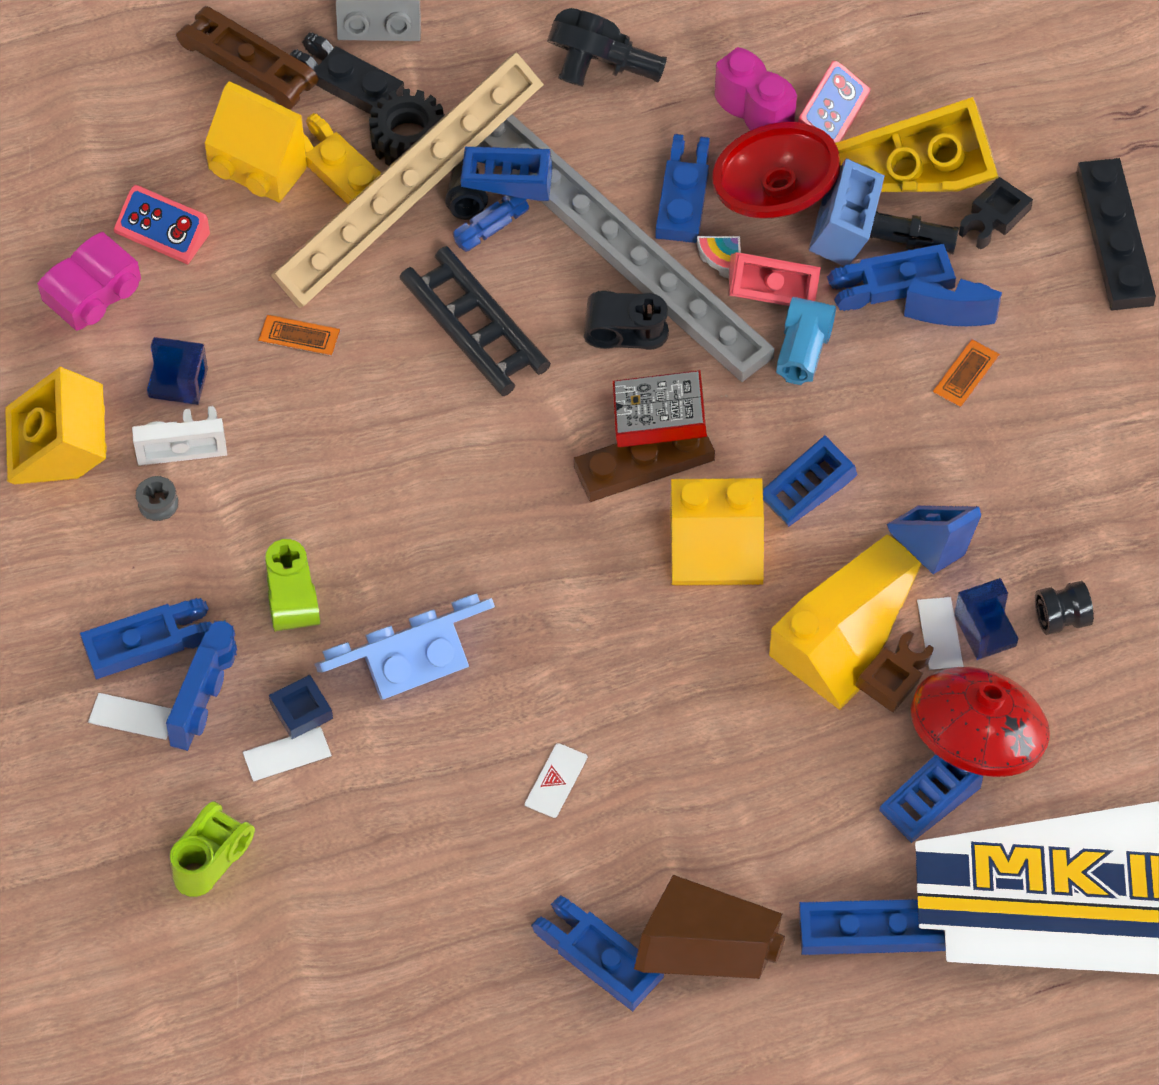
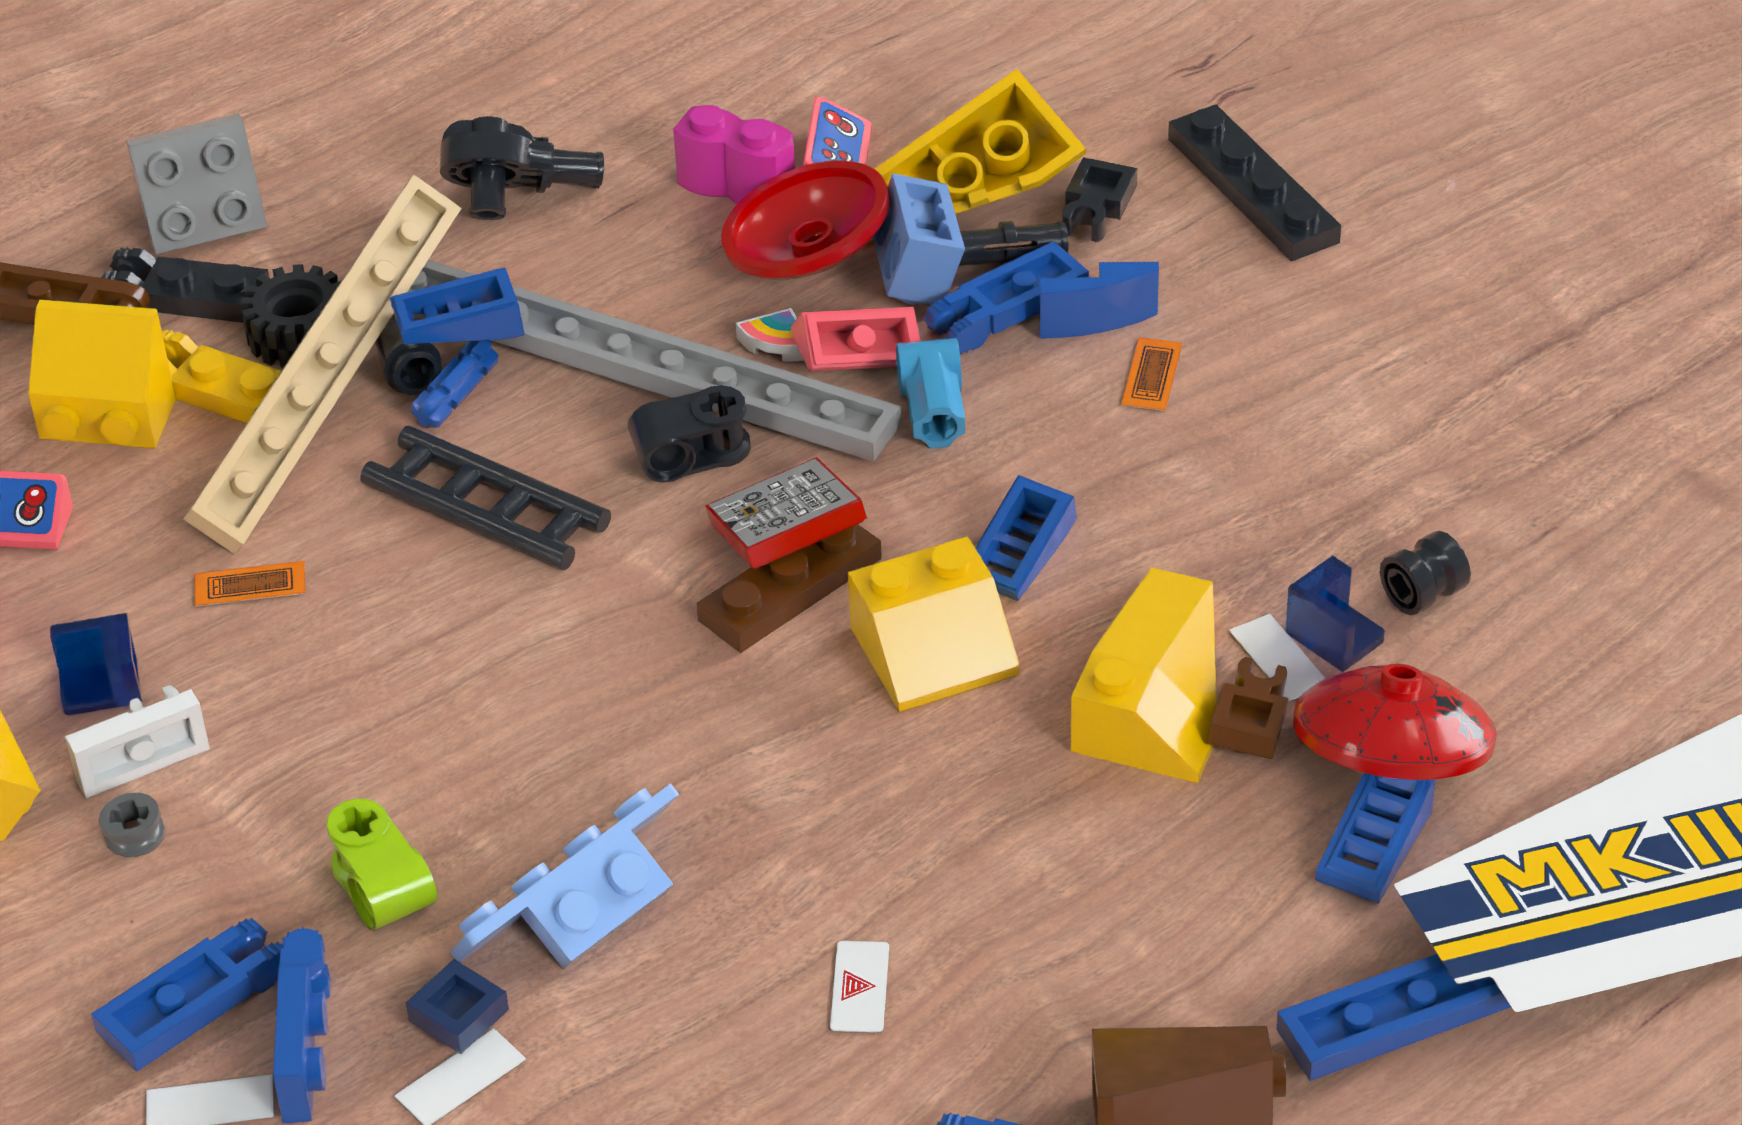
camera: 20 degrees left, 15 degrees down
(683, 193) = (693, 286): blue hinge -> none
(936, 533) = (1221, 542): blue slope -> none

